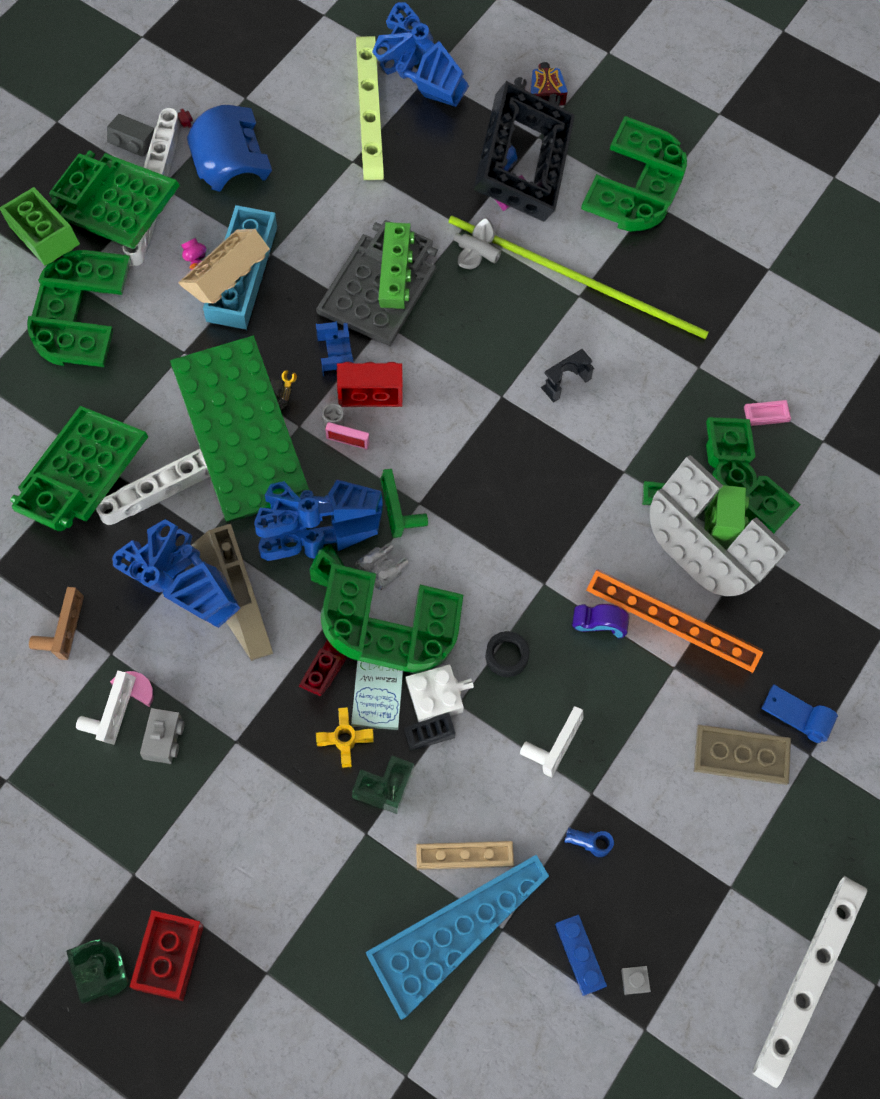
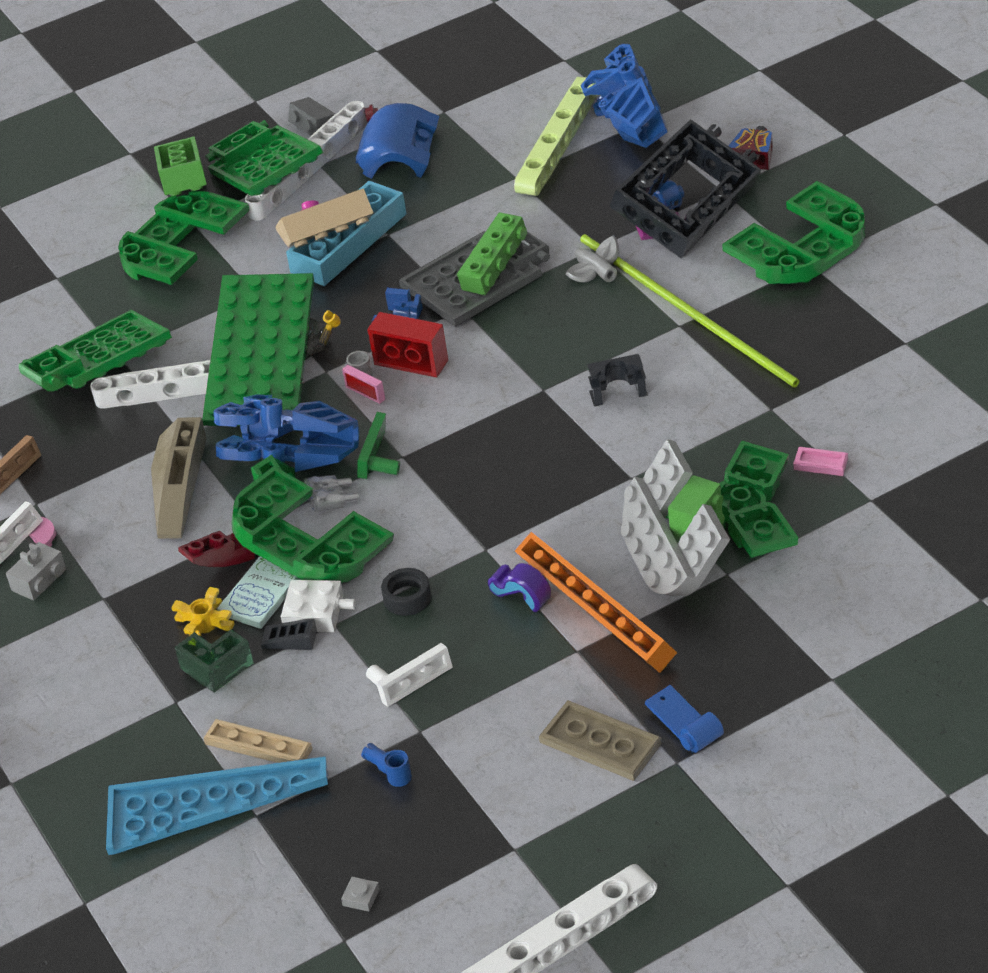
camera: 35 degrees right, 25 degrees down
(198, 590) = (125, 439): blue piece -> none
(580, 955) = (318, 857): blue plate -> none

